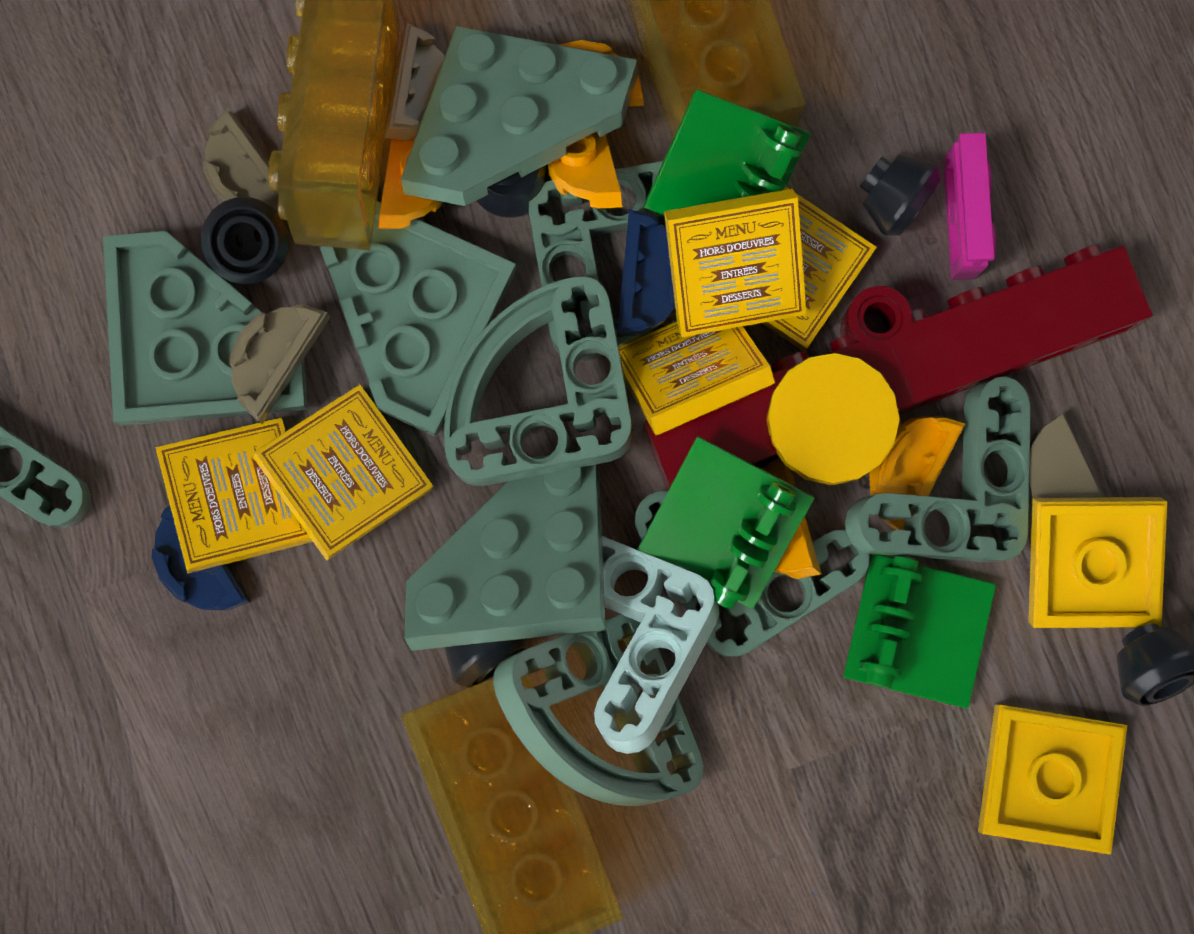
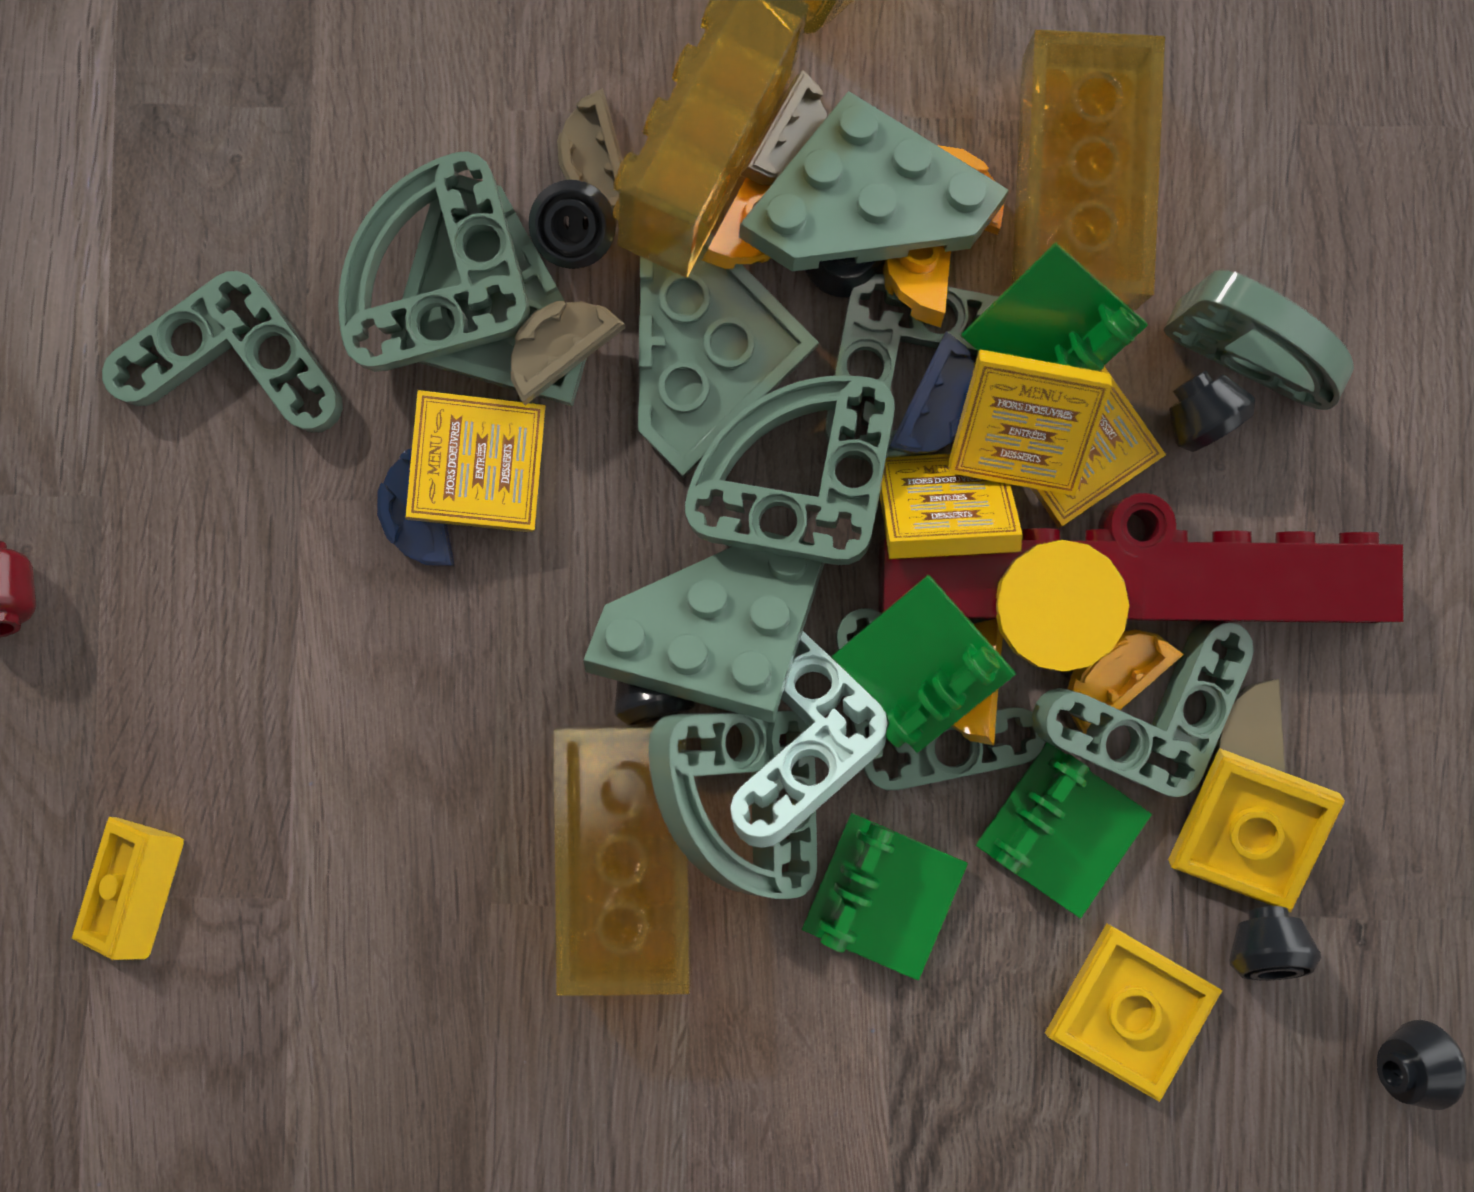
camera: 20 degrees right, 5 degrees up
(174, 323) = (476, 278): none -> sand green beam
(343, 472) = (583, 478): yellow tile -> none
(775, 759) = (884, 896): none -> green hinge
(874, 111) = (1262, 338): none -> sand green beam
(969, 207) = (1269, 450): dark pink plate -> none

